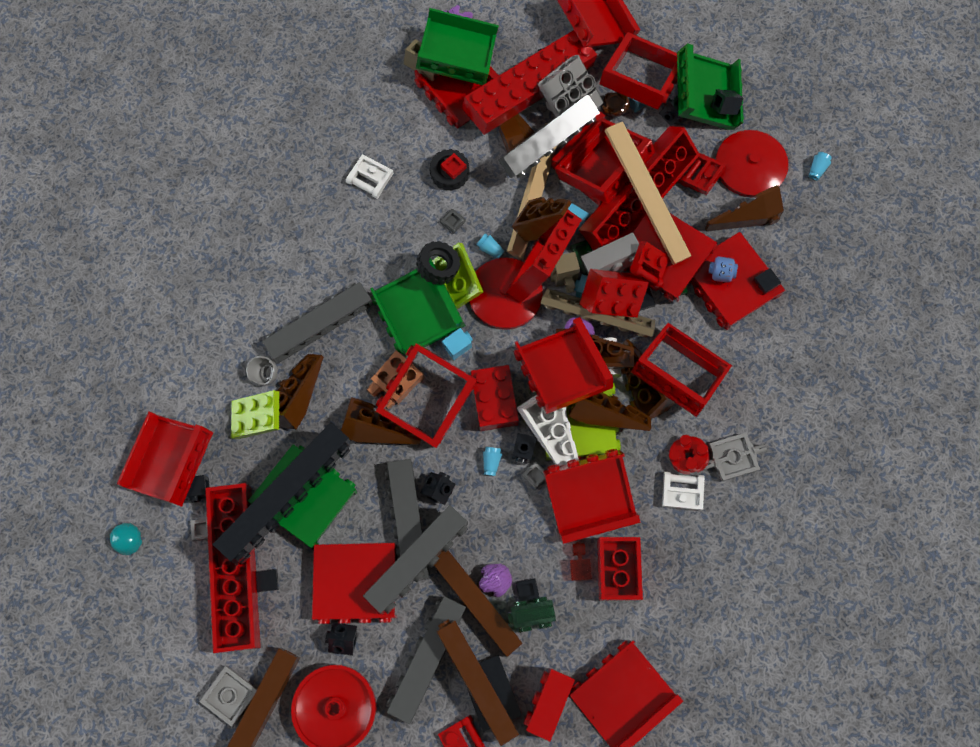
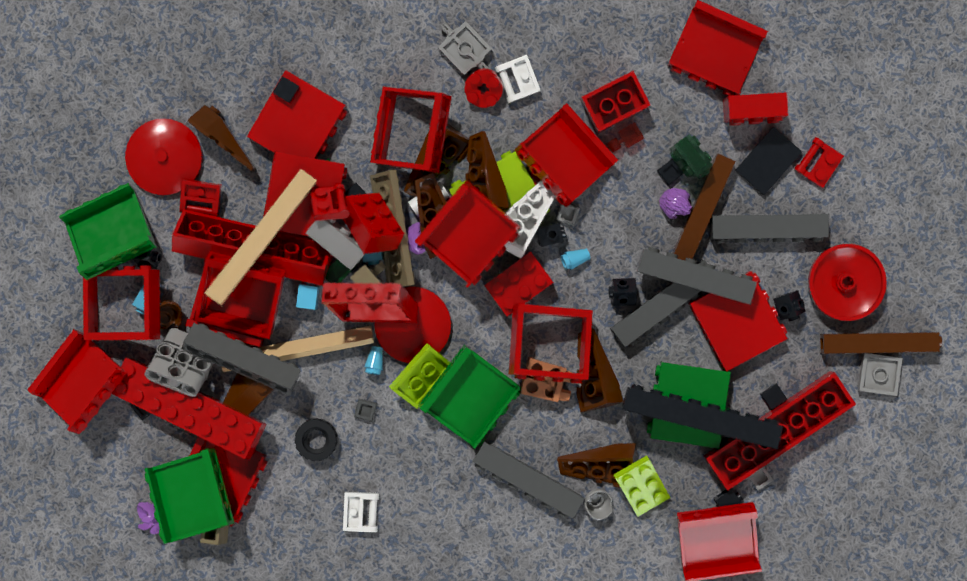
camera: 120 degrees left, 15 degrees up
(125, 539) = (800, 537): teal hair -> none
(430, 273) = (413, 386): black tyre -> none
(453, 166) = (315, 435): red plate -> none
(457, 343) = (484, 342): medium azure brick -> none
(476, 682) = (768, 176): reddish brown brick -> none
(539, 216) = (331, 326): reddish brown wedge -> none
(723, 269) = (297, 134): medium blue head -> none
(726, 102) = (116, 208): black brick -> none
(819, 165) = (135, 91): medium azure cone -> none

